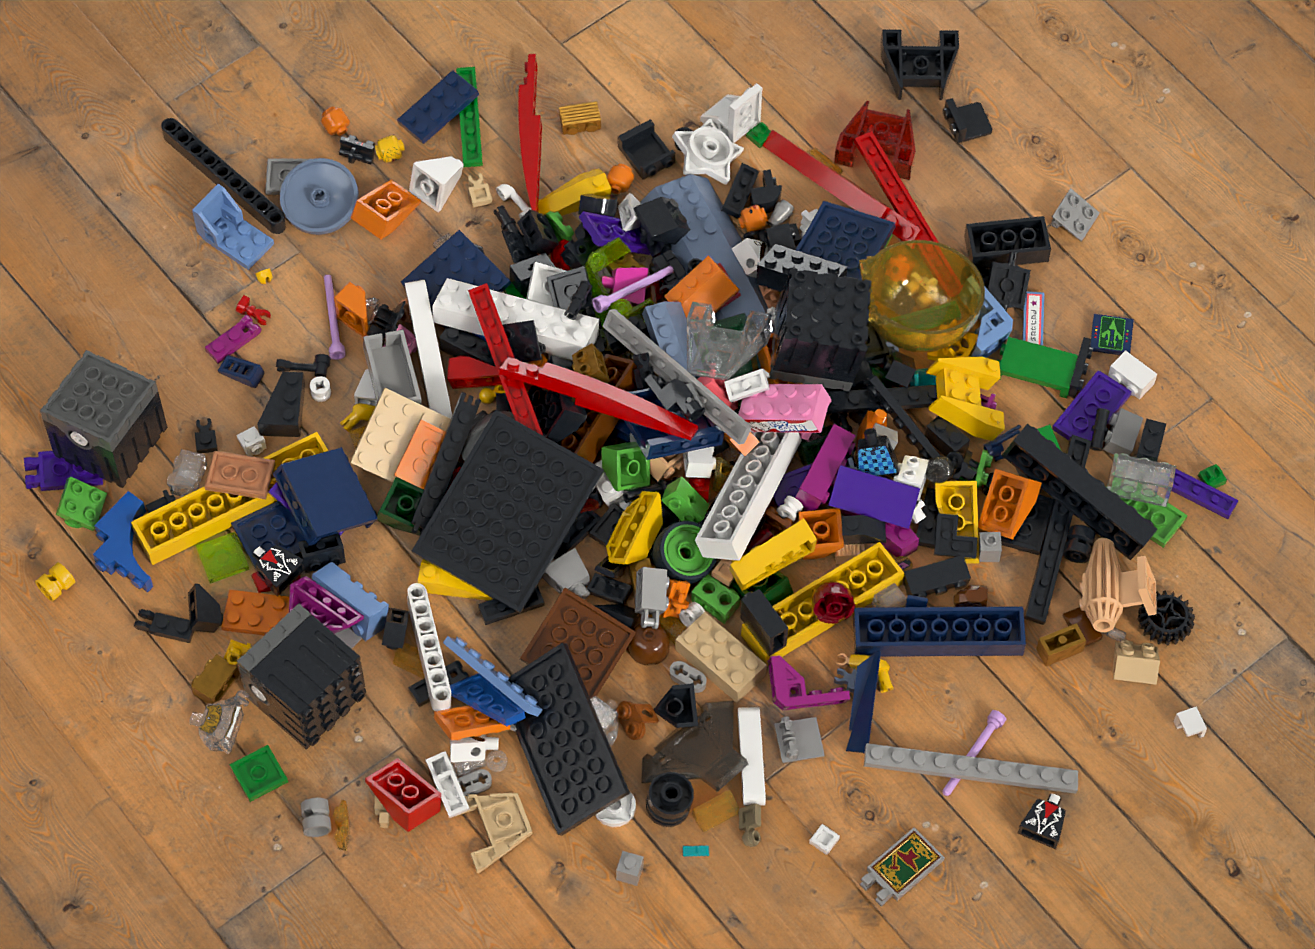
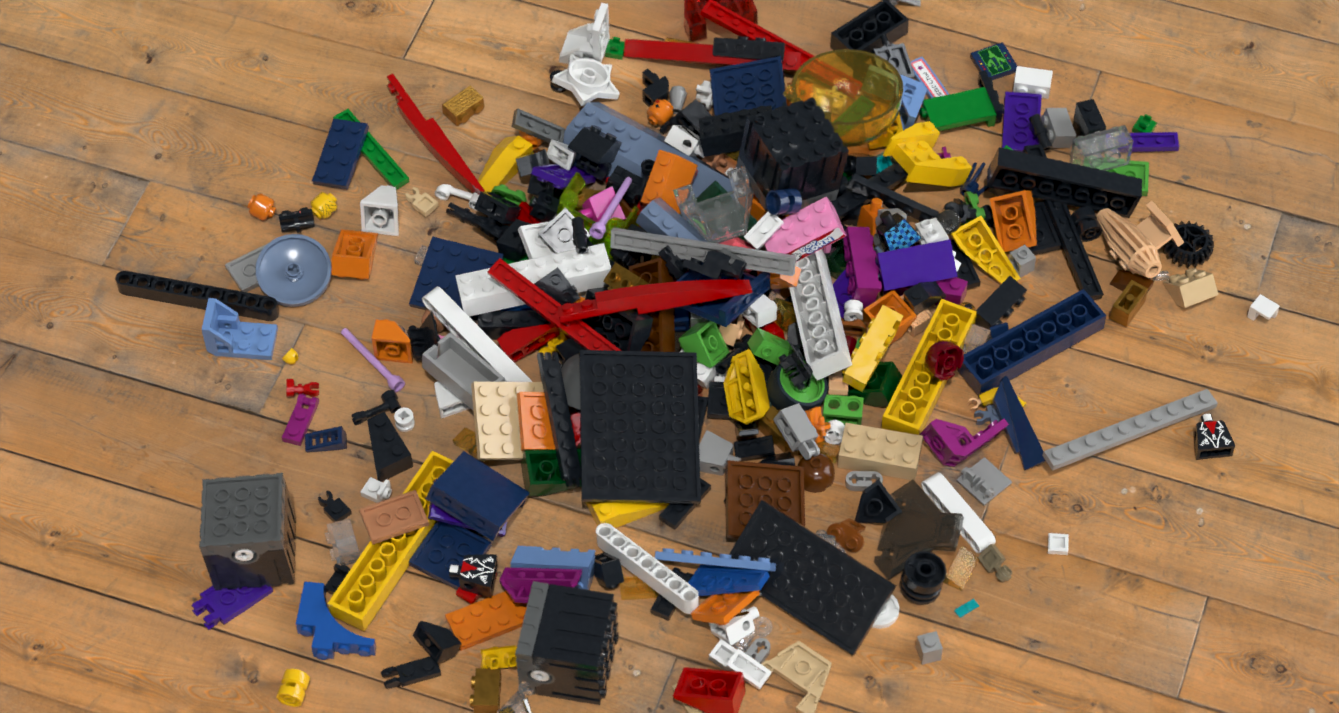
camera: 30 degrees left, 5 degrees down
(80, 504) = (269, 615): bright green plate -> none
(222, 557) = (419, 593): clear neon green plate -> none
(322, 553) = (505, 543): black brick -> none
(360, 412) = (455, 418): yellow arm -> none
(625, 174) = (537, 126): none -> dark grey plate
(645, 150) = (535, 101): black panel -> none
(685, 527) = (803, 371): none -> black hinge
(740, 190) = (633, 97): black plate -> none
(763, 622) = (903, 401): black brick -> none
(777, 368) = (783, 201): none -> dark blue wheel
(872, 198) = (747, 48): none -> black bracket
(902, 866) = (1131, 530): tile -> none
(946, 437) = (931, 196): black brick -> none
(947, 541) = (990, 273): black plate -> none
(971, 597) = (1036, 303): reddish brown rock -> none
(994, 721) = (1120, 385): lavender piece -> none

